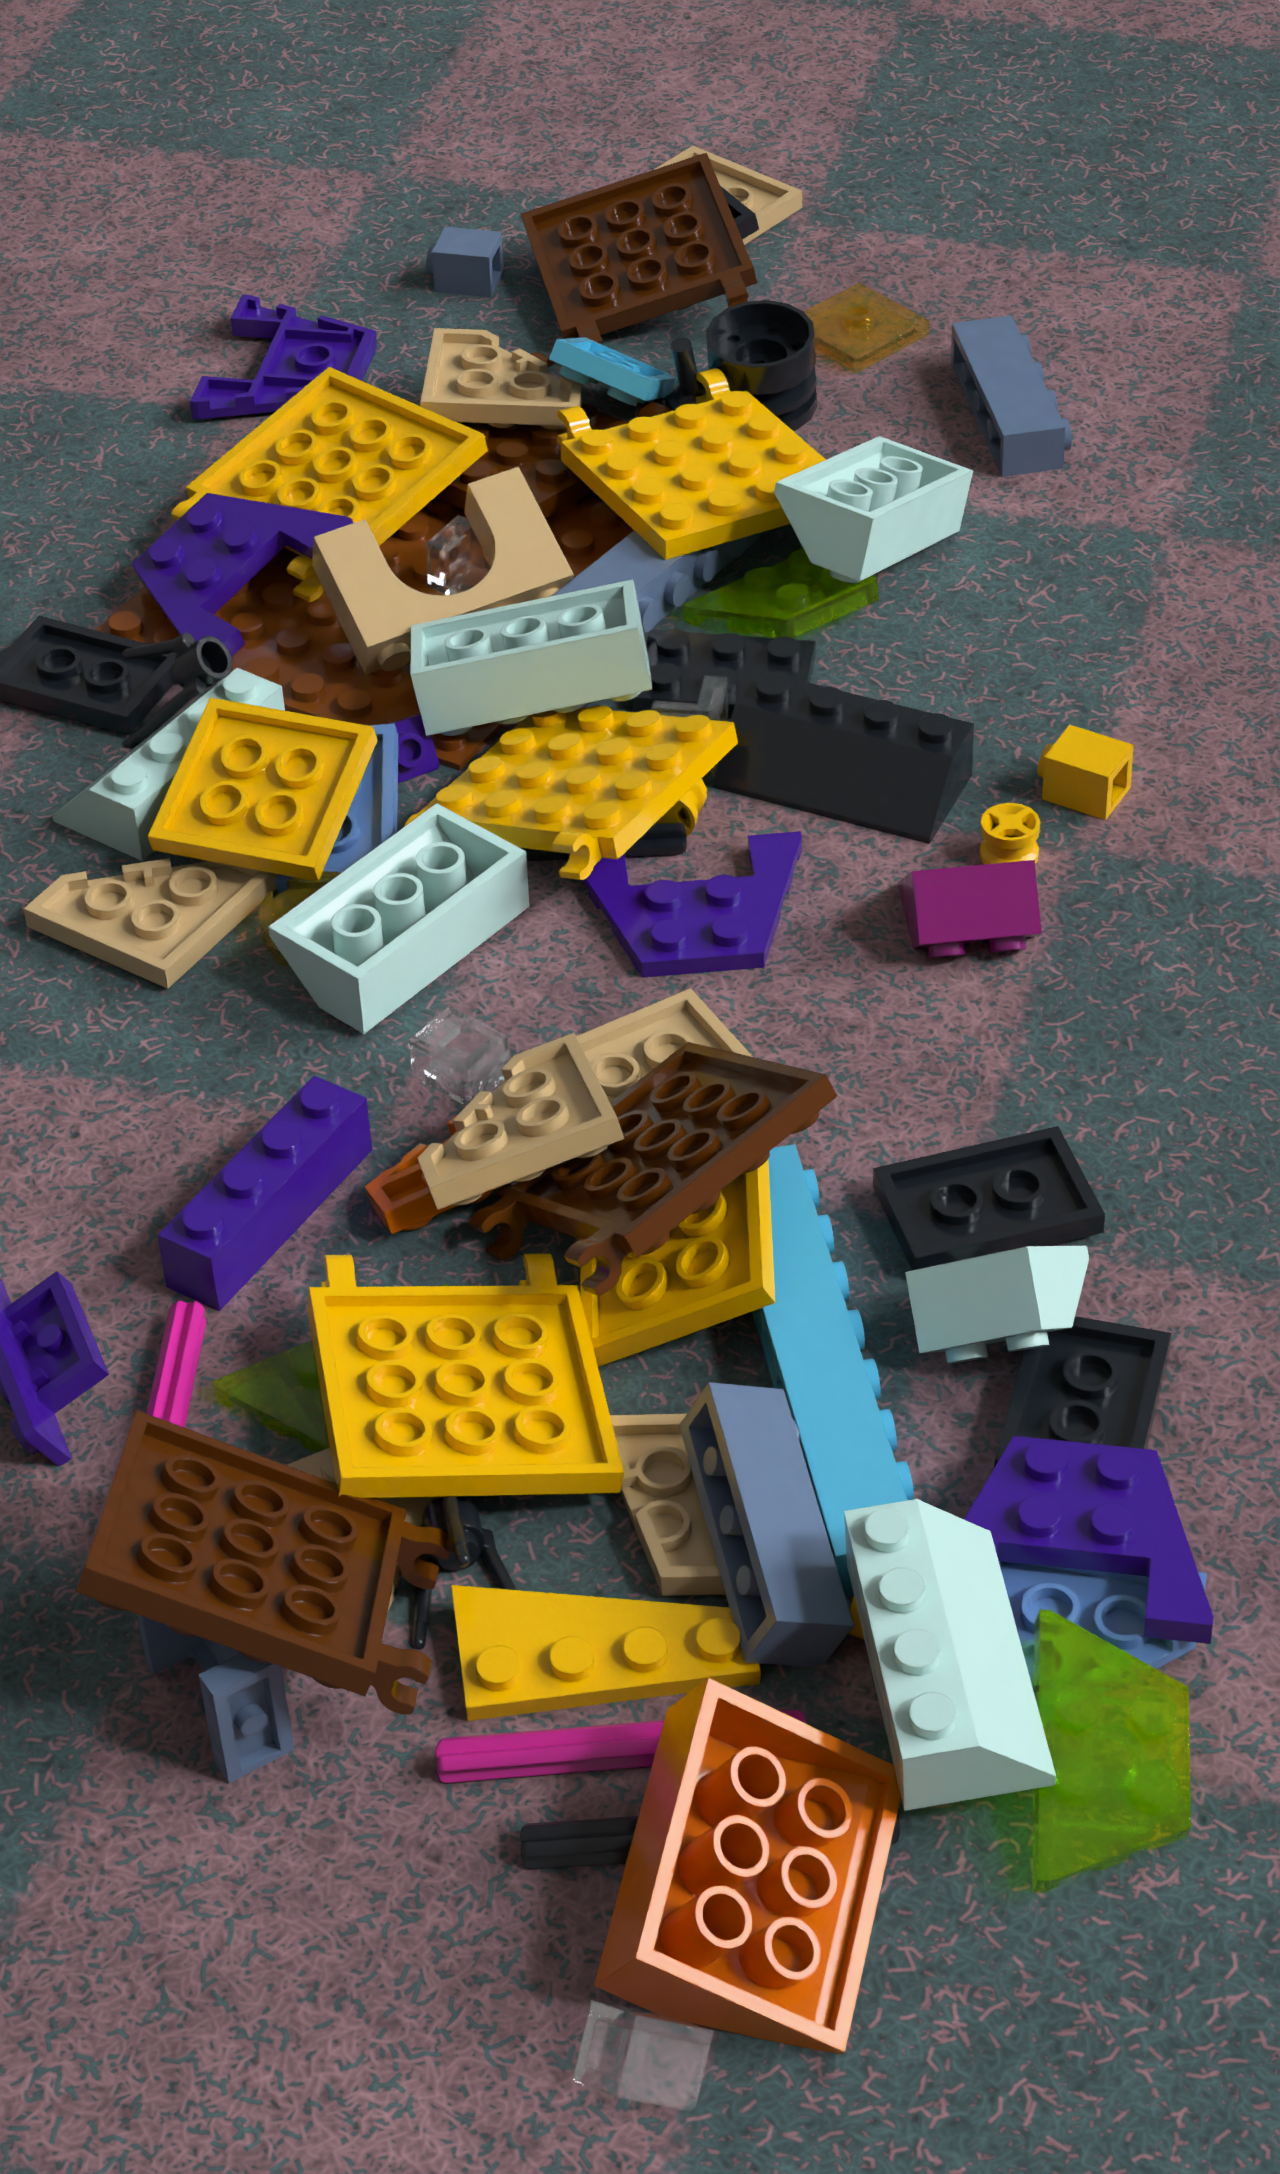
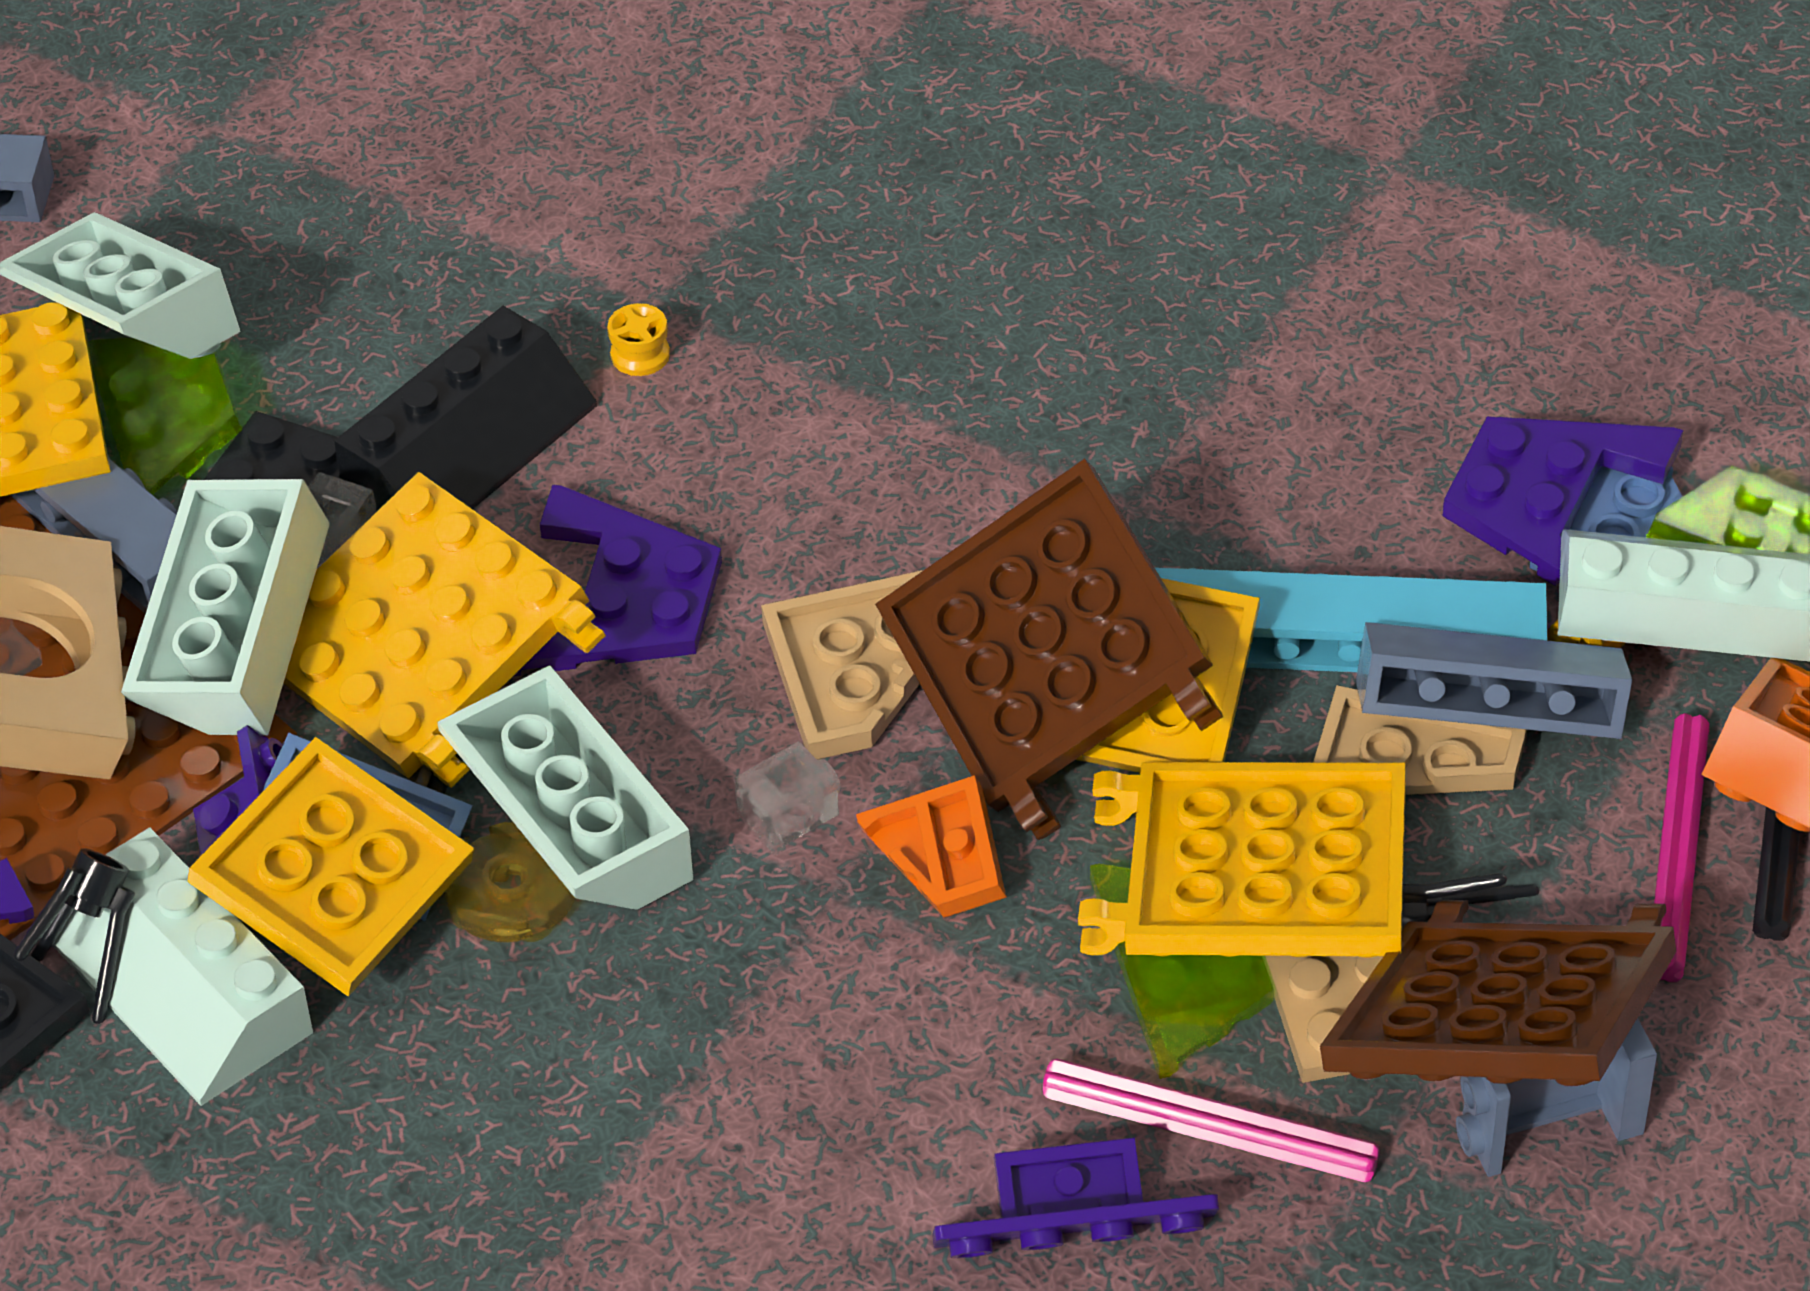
camera: 75 degrees left, 5 degrees up
(152, 916) = (431, 1029): tan plate -> none
(265, 1193) = (926, 977): dark purple brick -> none
(534, 1120) = (945, 739): tan plate -> none
(577, 1651) = (1570, 839): yellow wing -> none
(971, 906) = (727, 384): magenta slope -> none
(988, 1199) = (1135, 451): black plate -> none
(996, 1299) = (1275, 471): light aqua slope -> none
(1086, 771) = (574, 262): yellow brick -> none
(1089, 1386) = (1377, 463): black plate -> none

